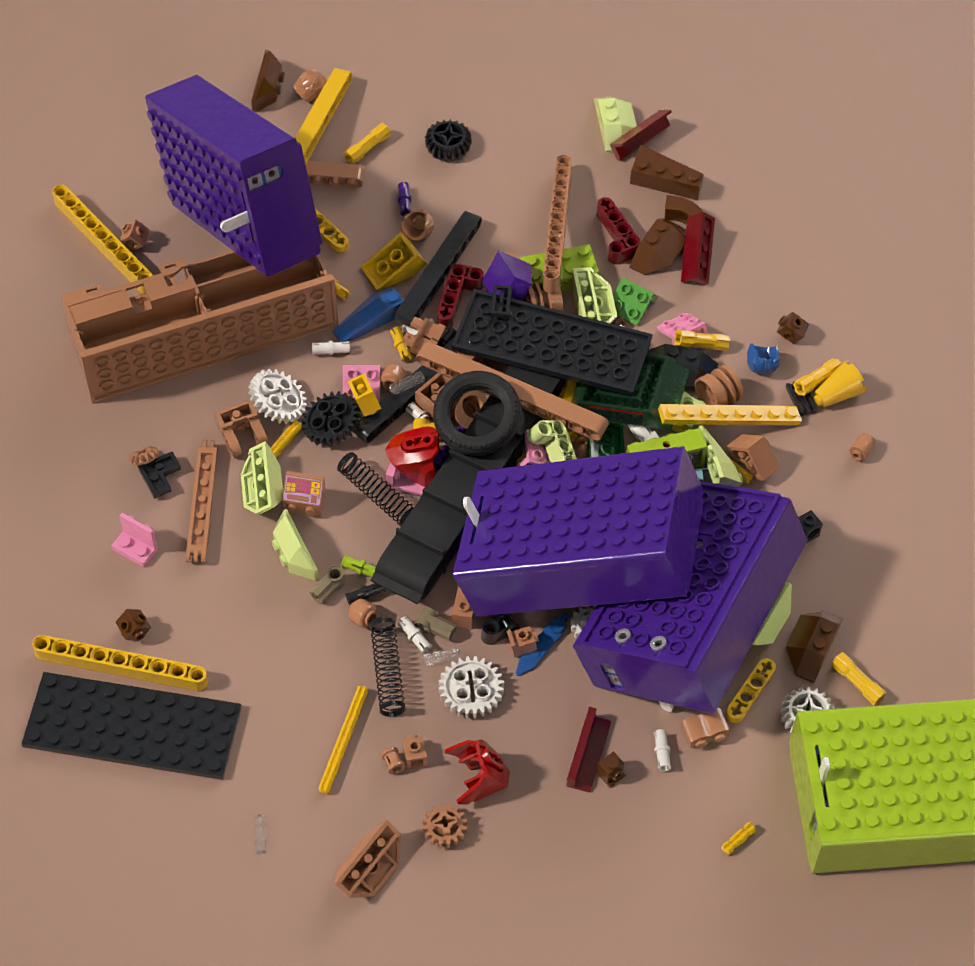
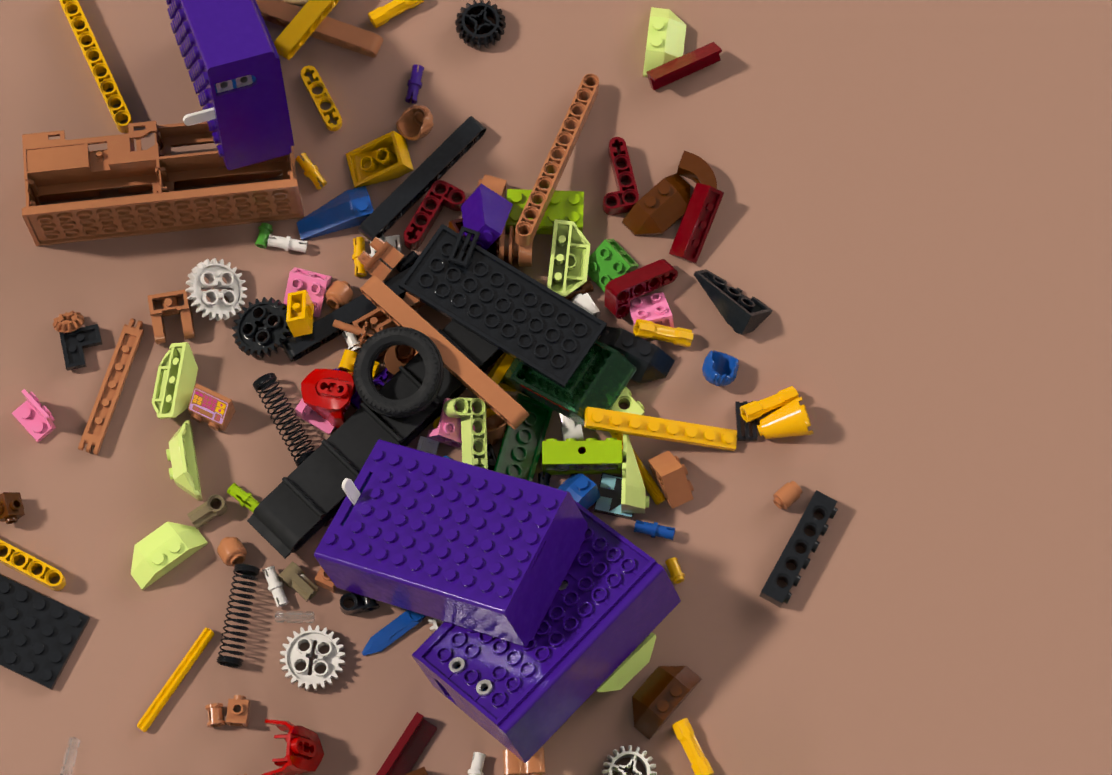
camera: 15 degrees right, 15 degrees up
(134, 235) = (126, 62): nougat brick -> none
(286, 438) = (212, 337): yellow axle -> none
(296, 630) = (164, 551): none -> yellowish green wedge
(306, 346) = (263, 235): none -> bright green pin
(353, 596) = (237, 529): black pin -> none
(406, 383) = (348, 308): clear axle -> none
(418, 396) = (353, 329): none -> nougat piece
(523, 641) = (379, 628): nougat brick -> none
(662, 306) = (635, 284): none -> dark red beam
(665, 174) = (692, 122): reddish brown wedge -> none
(719, 387) = (665, 393): nougat wheel -> none
(749, 689) = (583, 732): yellow beam -> none
(761, 311) = (738, 310): none -> black wedge
(792, 327) = (763, 340): reddish brown brick -> none
(811, 525) = (699, 571): black brick -> none
(880, 528) = (819, 503): none -> black brick

